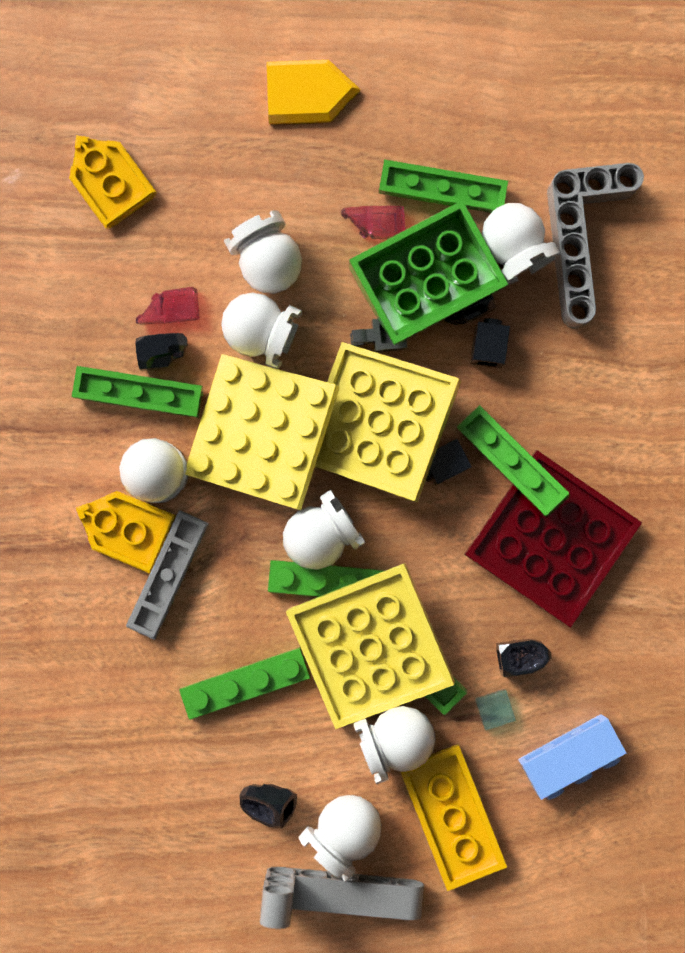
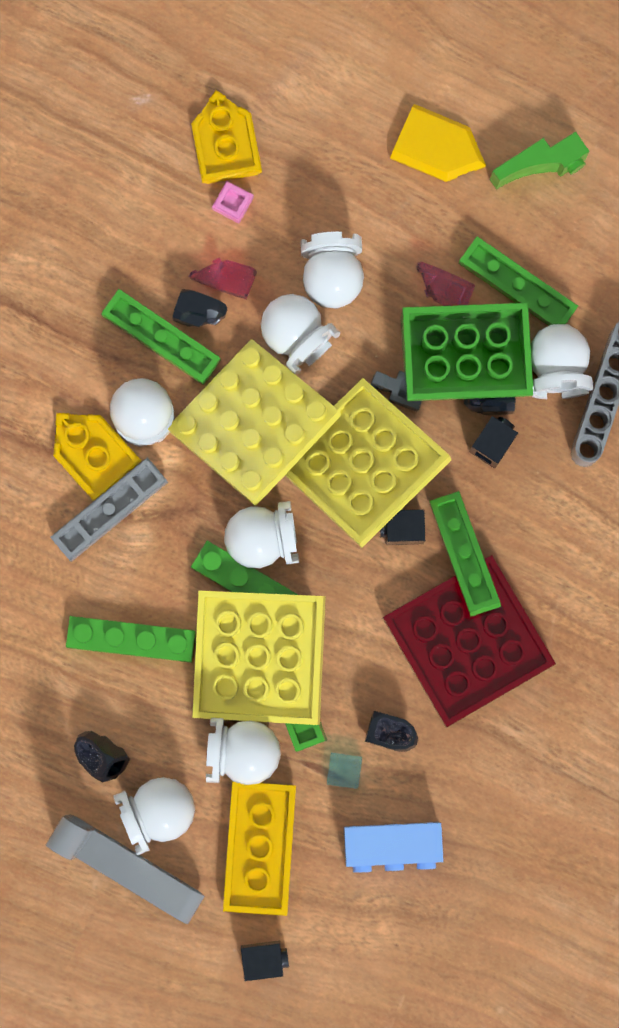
camera: 20 degrees right, 5 degrees down
(143, 234) = (232, 202): none -> bright pink tile
(409, 57) = (540, 158): none -> bright green slope
(505, 917) = (264, 960): none -> black brick

